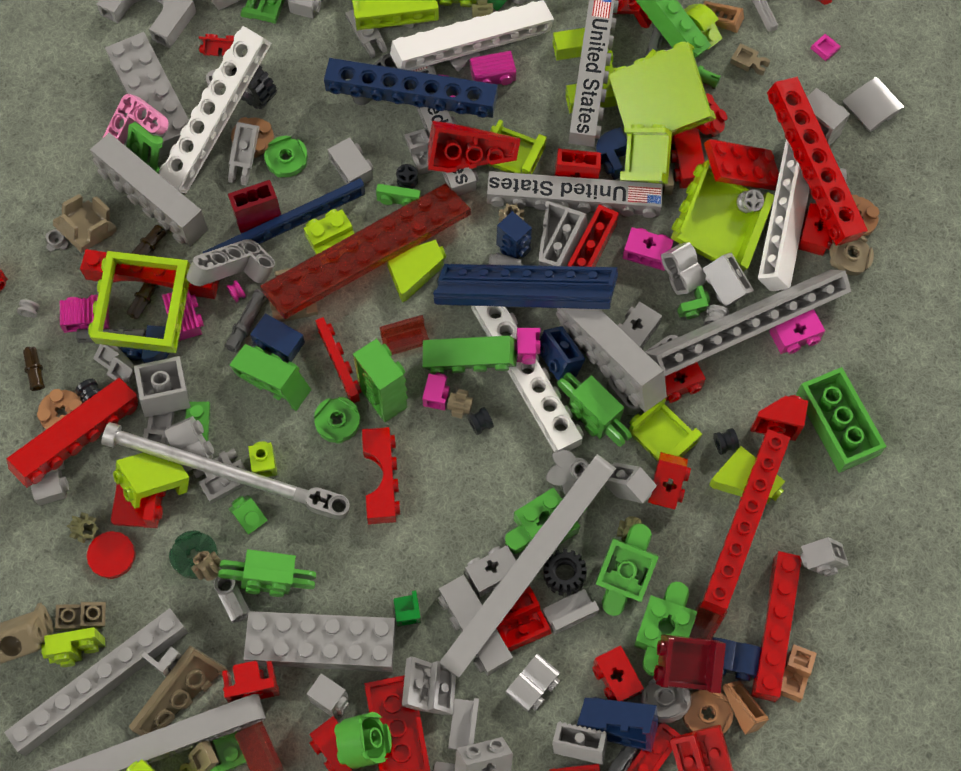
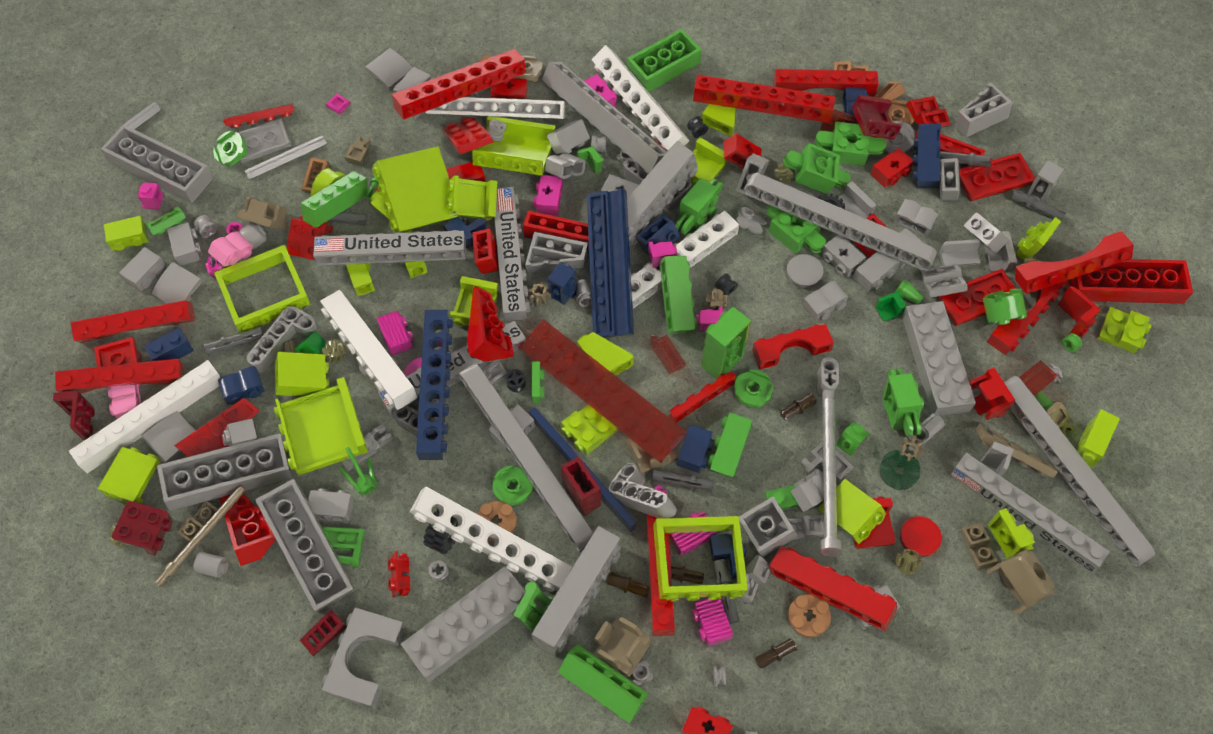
camera: 100 degrees left, 5 degrees down
(48, 202) = (603, 683): none -> bright green brick
(87, 389) = (786, 593): black wheel -> none
(134, 113) = (500, 621): bright pink beam -> none
(243, 151) = (518, 518): light grey hinge -> none
(263, 459) = (806, 434): lime brick -> none
(301, 462) = (798, 406): none -> dark brown axle
(317, 159) = (526, 456): none -> light grey beam
(324, 26) = (365, 484): none -> bright green plant
(328, 696) = (979, 339): light grey brick -> none
(423, 639) = (909, 292): none -> bright green cone
(433, 531) = (825, 300): none -> light grey brick
(484, 521) = (804, 271): none -> light grey tile
(777, 377) = (607, 57): none -> white brick
(782, 416) = (673, 90): red slope -> none
(824, 556) = (771, 57): light grey brick -> none

